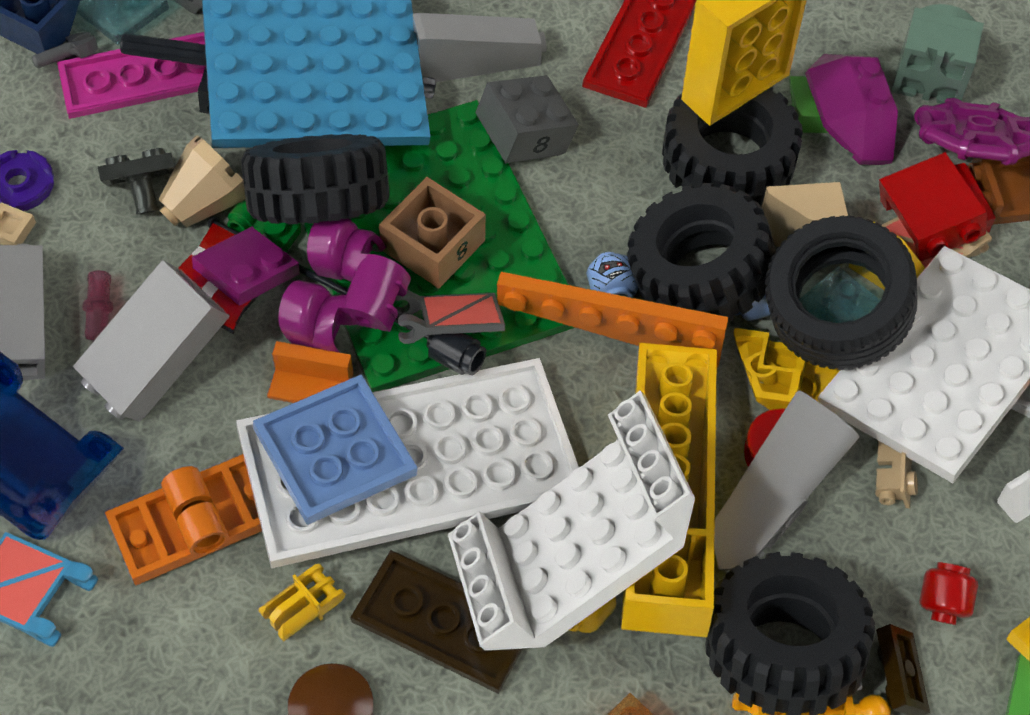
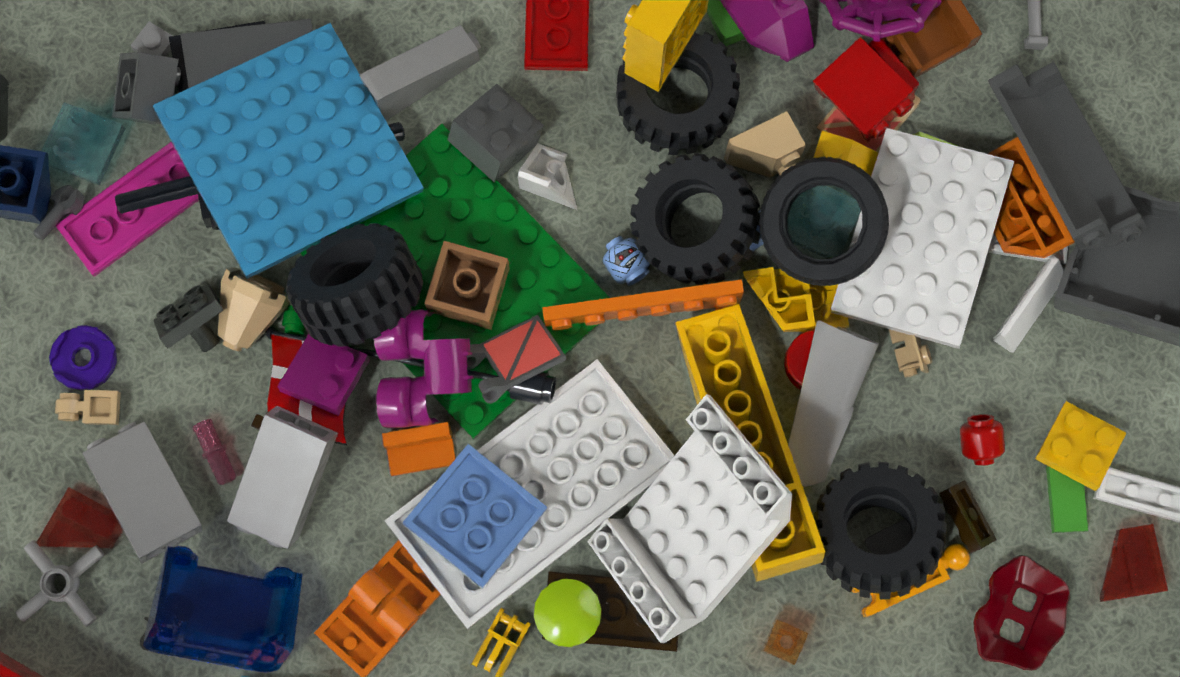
camera: 20 degrees left, 20 degrees up
(391, 596) = (567, 612): none -> lime dish
(560, 179) = (547, 176): none -> white slope

